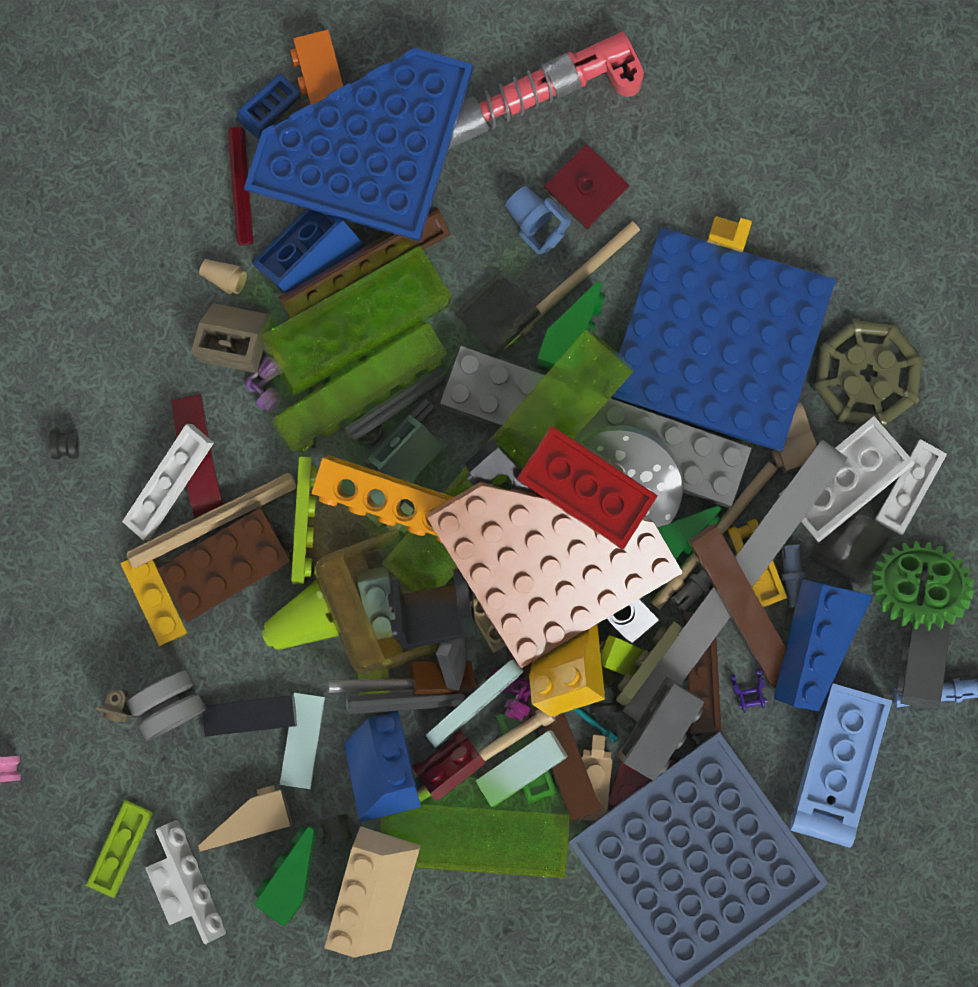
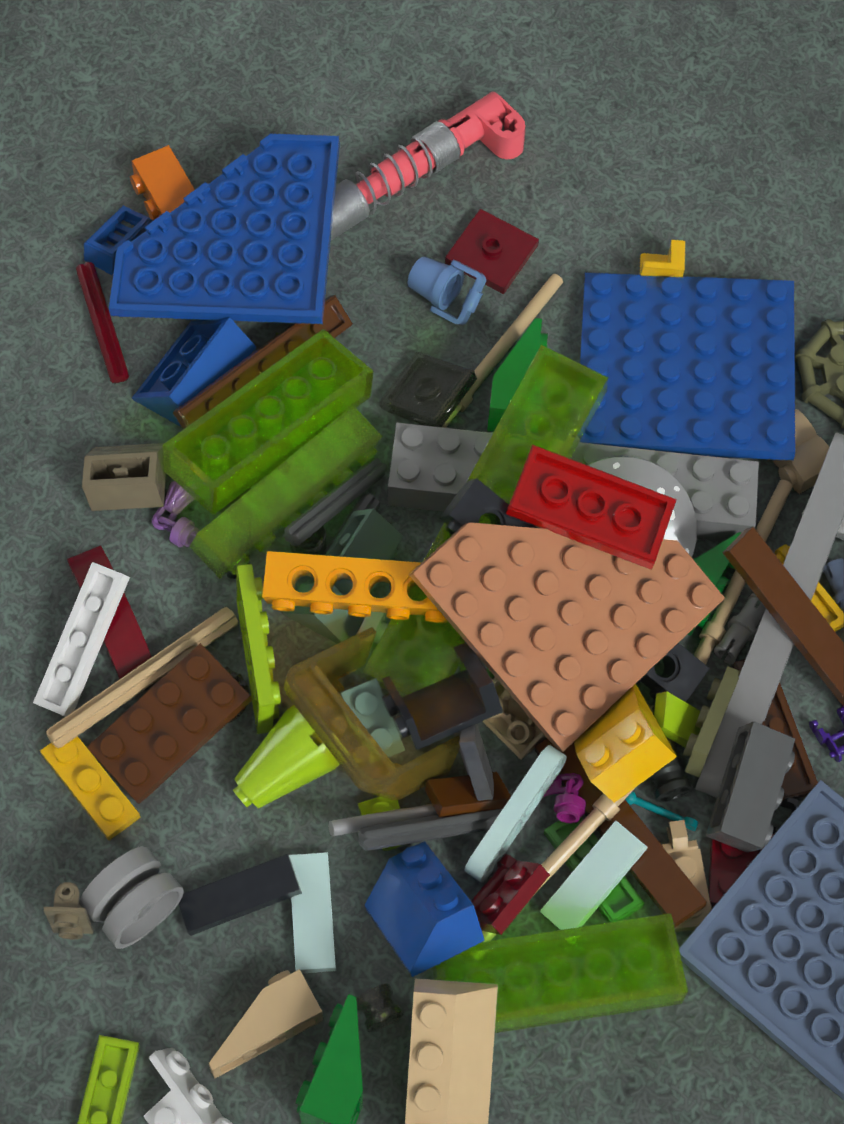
camera: 20 degrees left, 20 degrees down
(223, 275) = (105, 414): tan cone -> none

